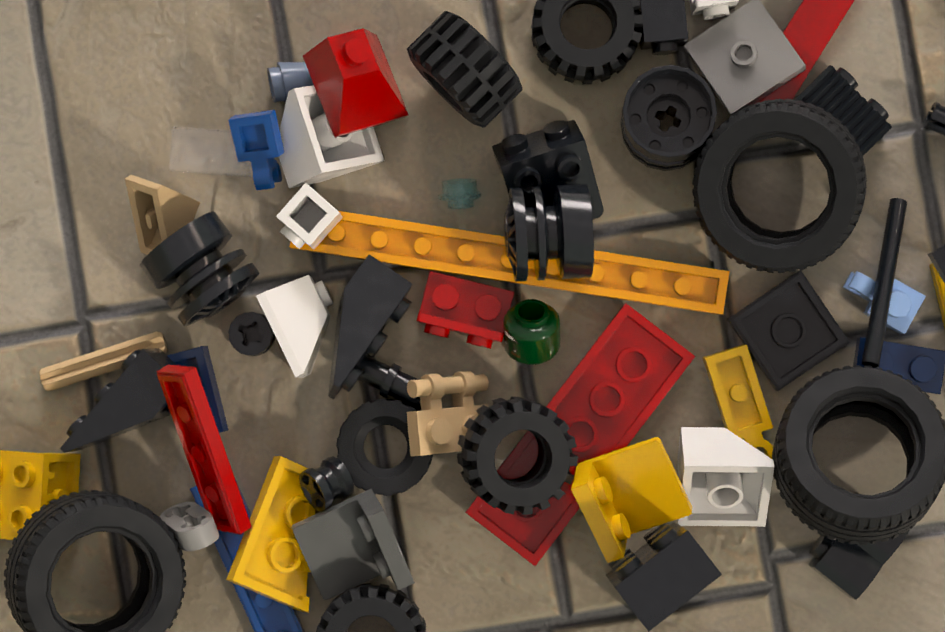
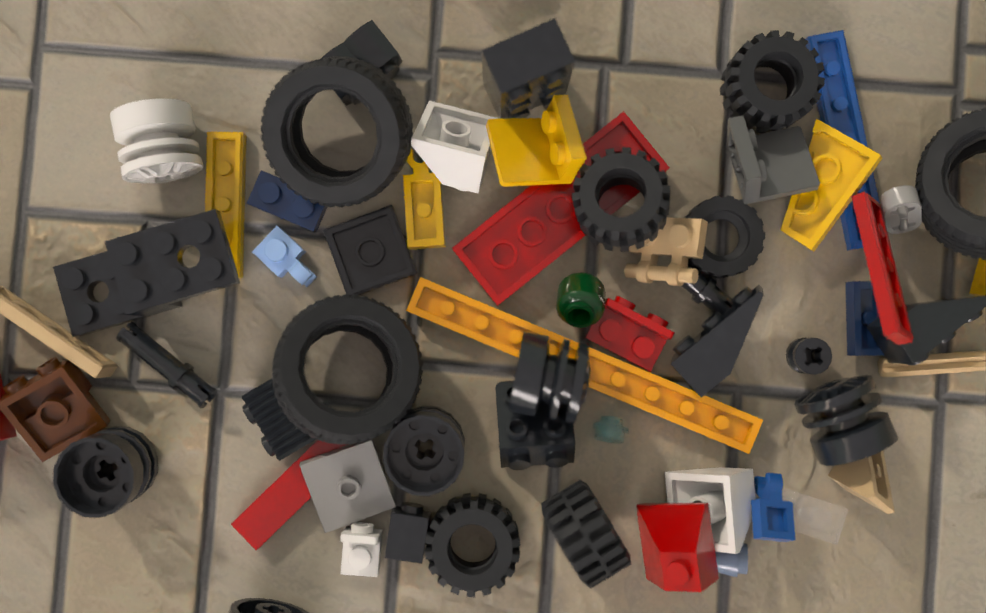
camera: 160 degrees left, 0 degrees up
(298, 320) = (774, 355): white slope -> none
(308, 218) = (748, 440): white brick -> none
(326, 483) = (779, 217): black wheel -> none
(884, 282) = (282, 269): black bar -> none

